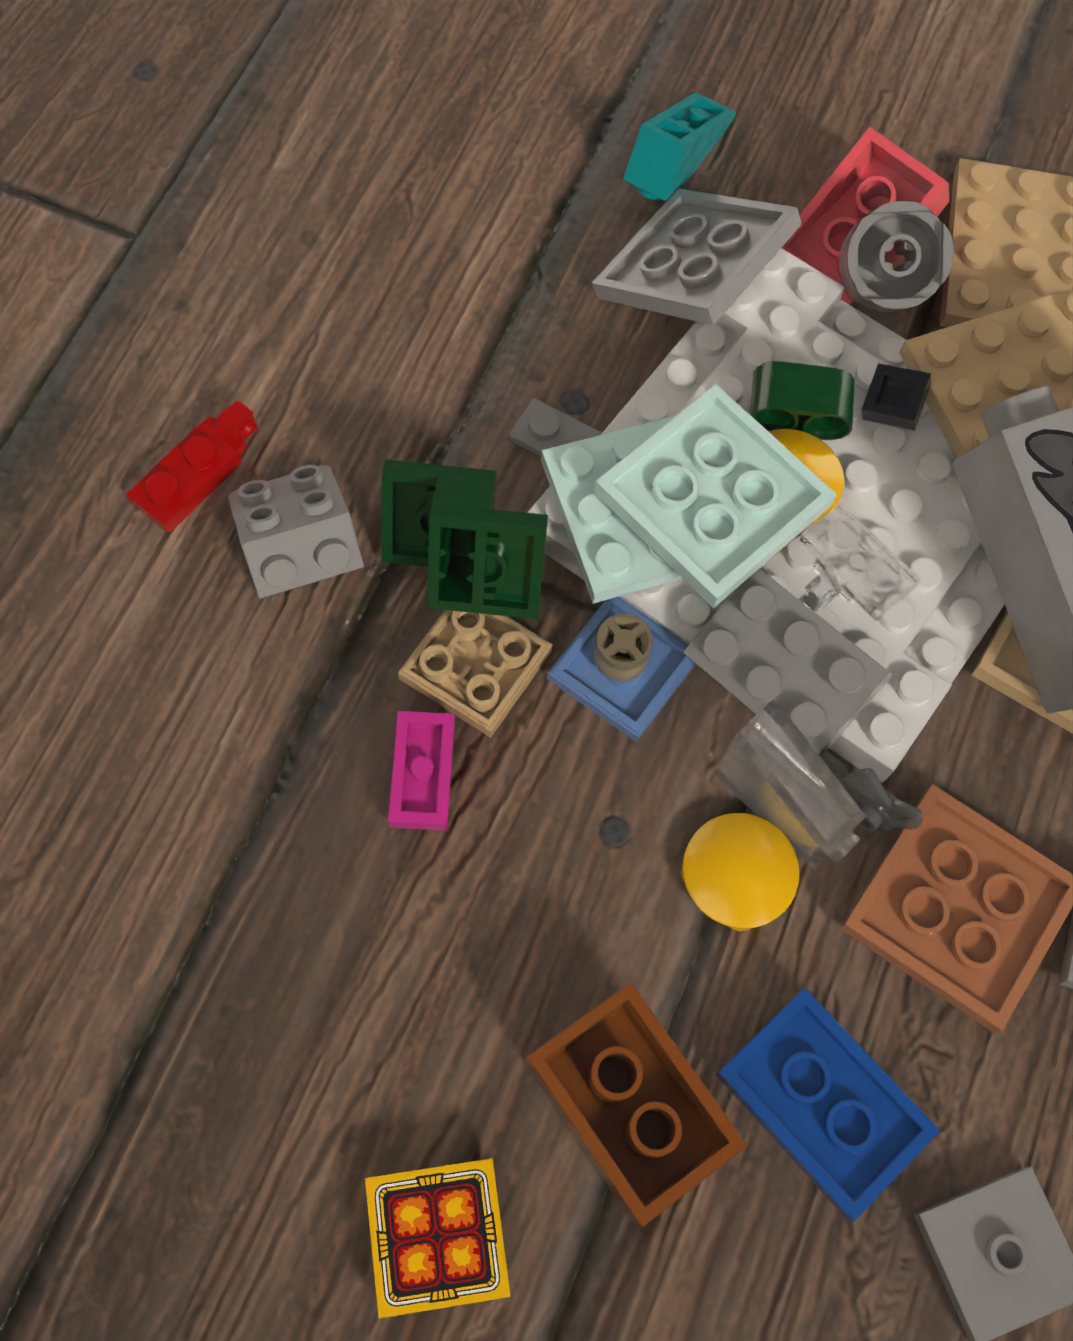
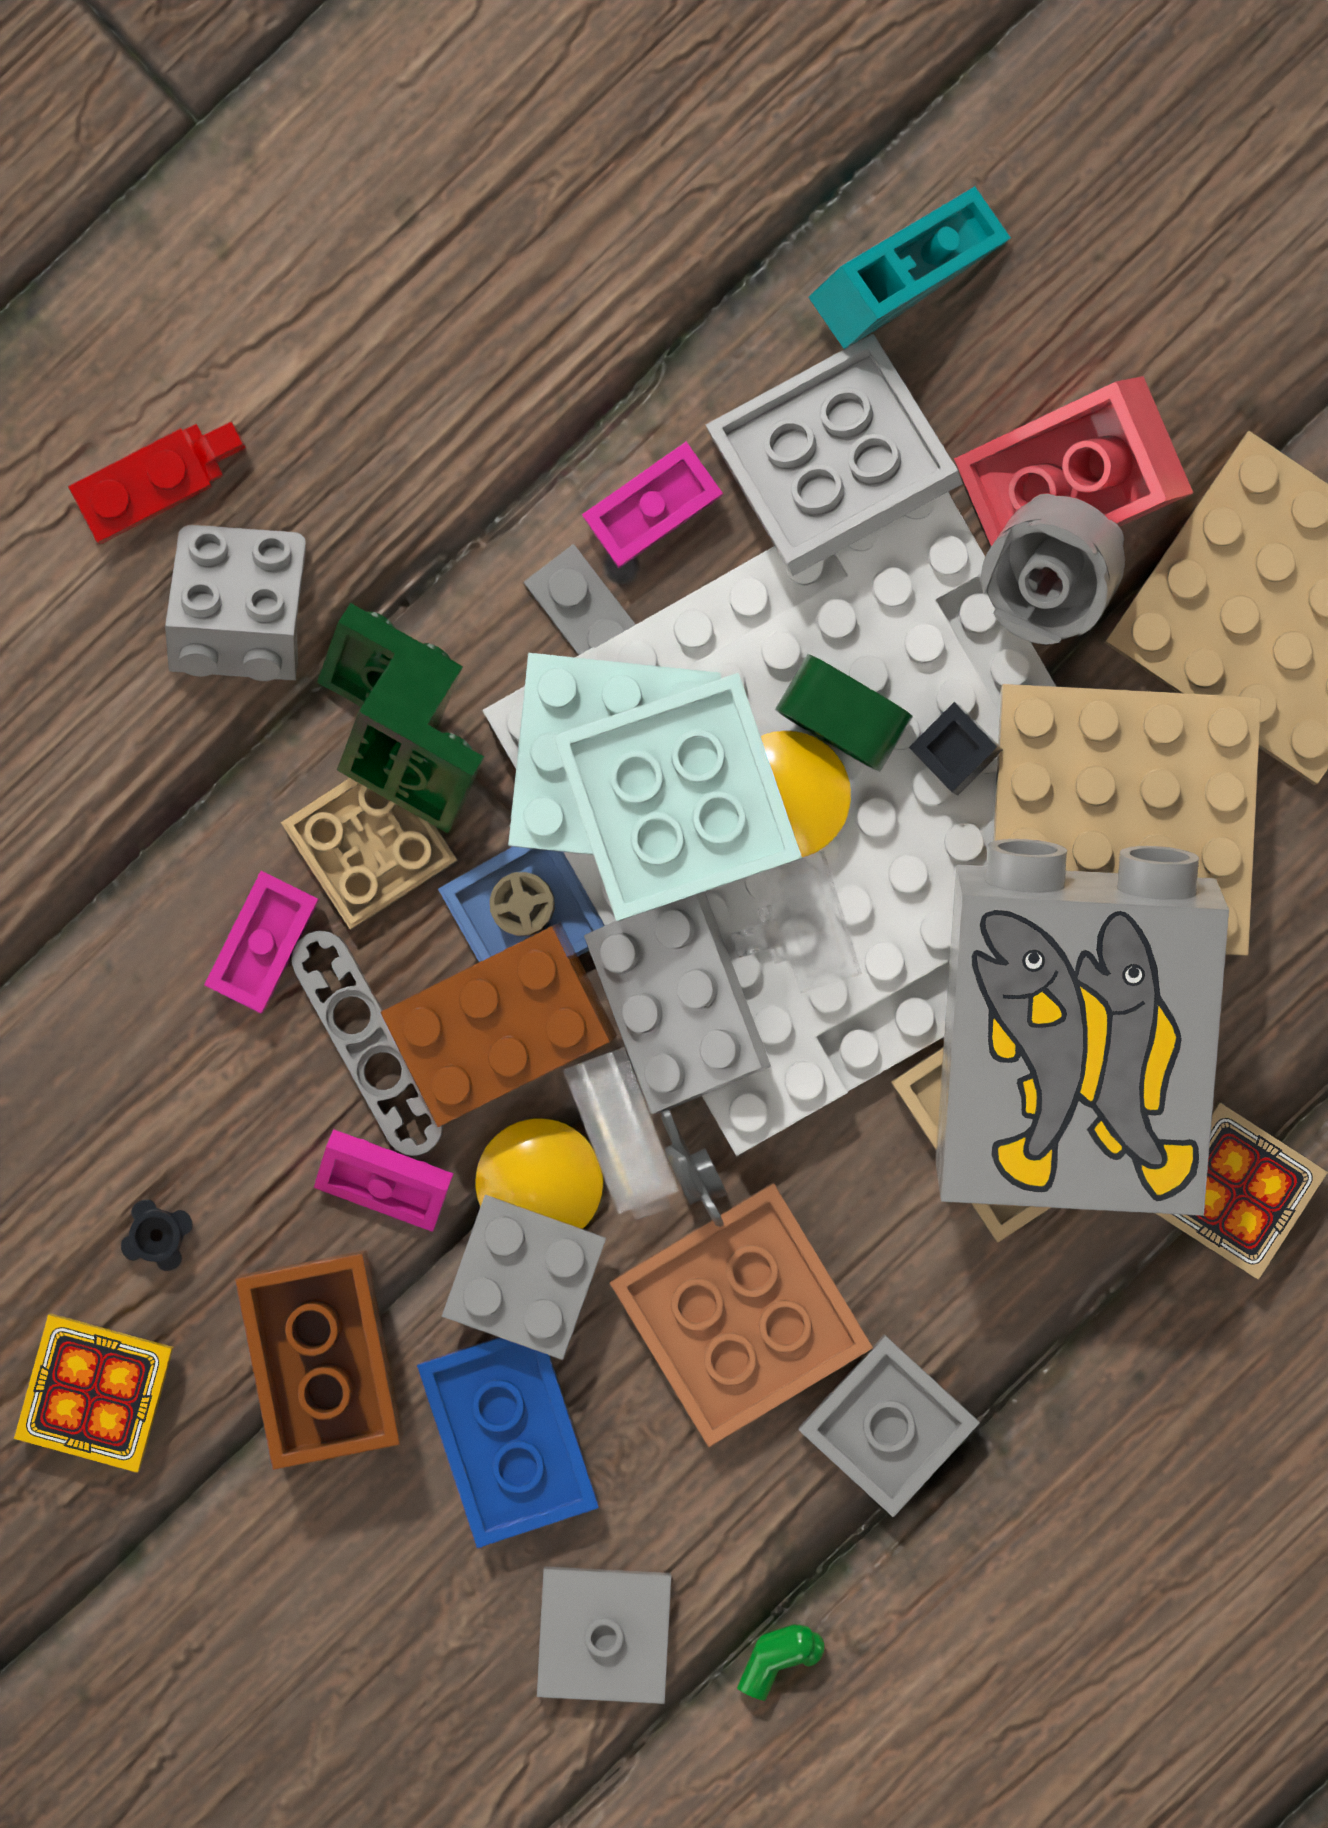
camera: 30 degrees right, 20 degrees up
(421, 1048) = (141, 1245): none -> black plate
(540, 823) = (360, 1047): none -> light grey beam
(579, 346) = (652, 505): none -> dark pink plate
(613, 922) = (383, 1180): none -> dark pink plate
(649, 746) = (499, 1024): none -> dark orange brick
(774, 949) = (524, 1277): none -> light grey plate

